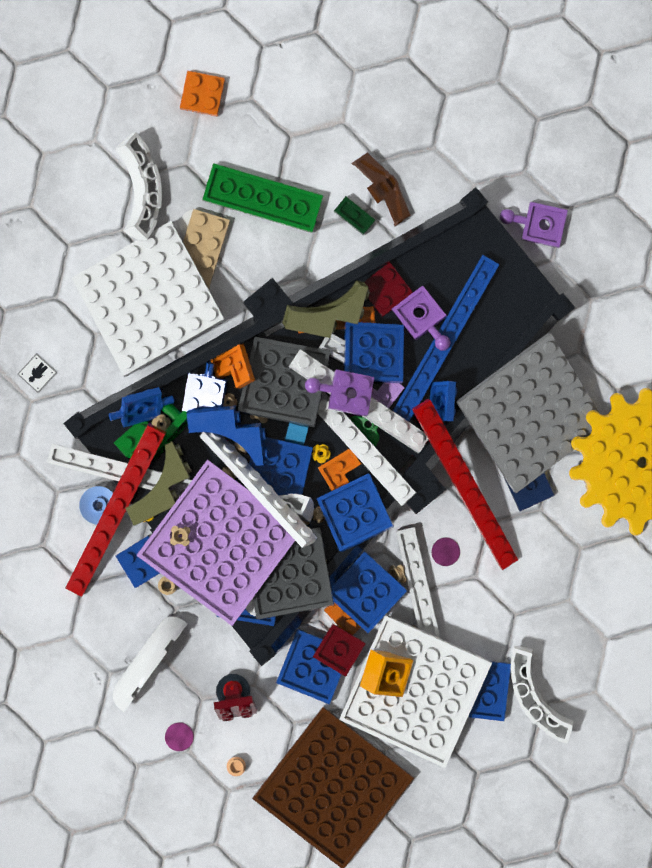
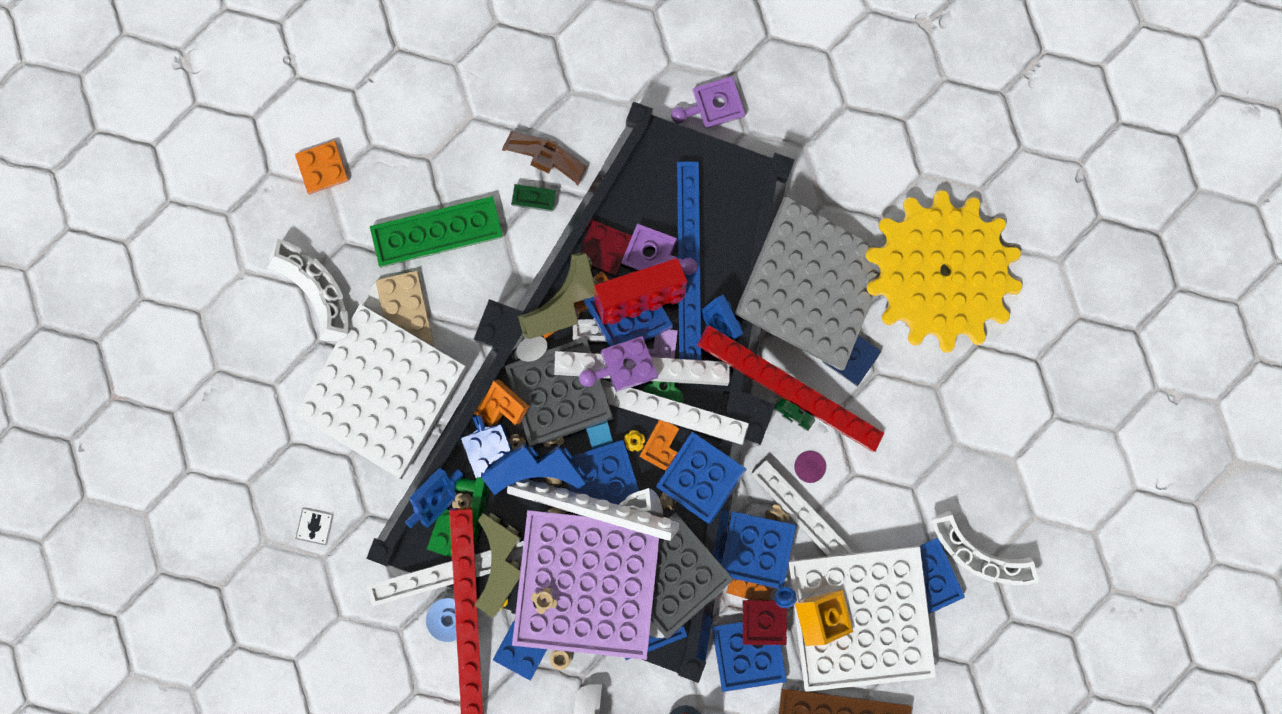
camera: 30 degrees left, 5 degrees down
(282, 337) = (531, 349): none -> white sticker
(366, 640) = (785, 597): none -> blue plate
(392, 341) = (640, 291): none -> red brick
(456, 504) = (793, 413): none -> dark green plate

